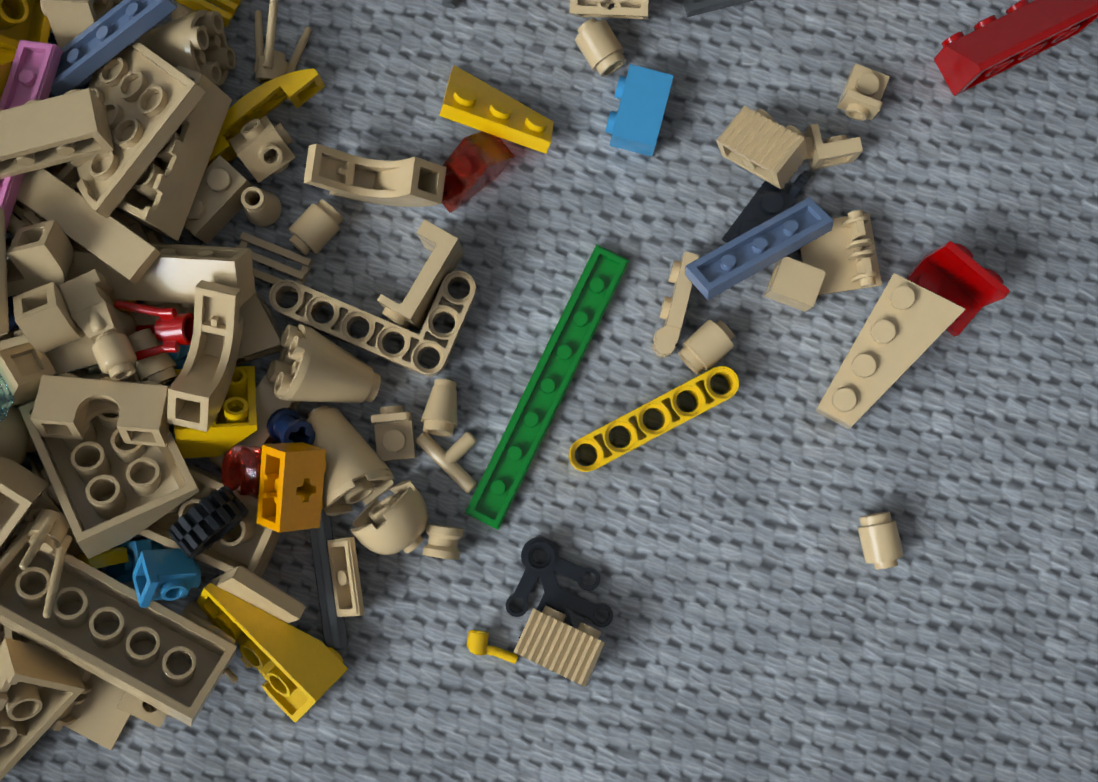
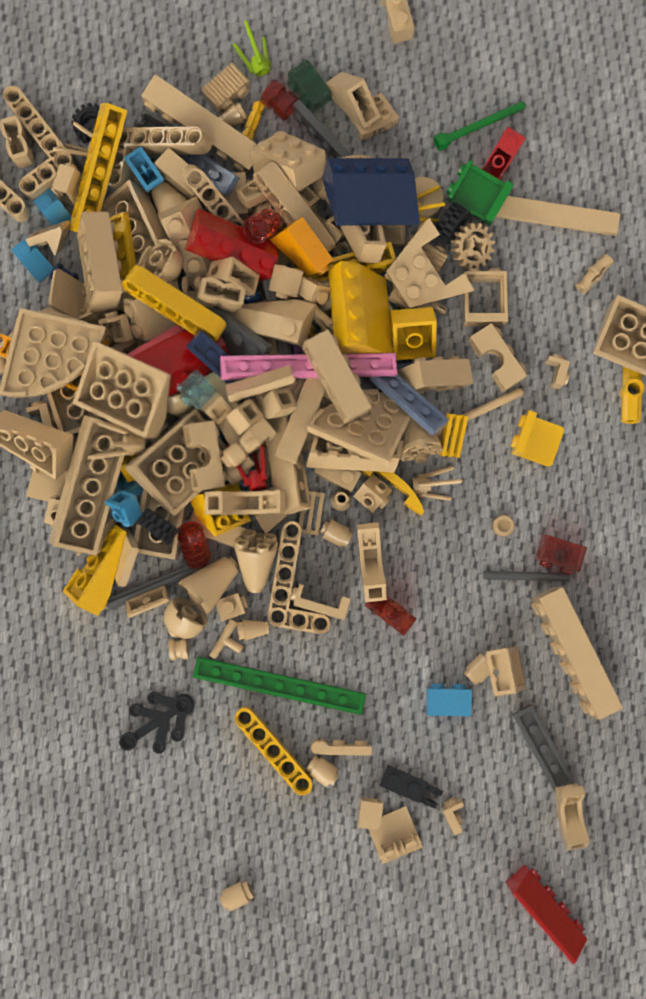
camera: 75 degrees right, 0 degrees up
(287, 427) = (217, 555): dark blue bush -> none
(291, 486) = (187, 563): light orange brick -> none
(478, 644) = (127, 681): yellow hand -> none
(493, 112) = (426, 615): yellow wing -> none
(560, 646) = (136, 729): tan brick -> none
(758, 248) = (383, 788): sand blue plate -> none
(763, 146) = (443, 777): tan brick -> none
(863, 93) = (492, 827): tan bracket -> none
(891, 340) = (346, 875): tan wedge -> none
(960, 279) = (388, 904): red bracket -> none

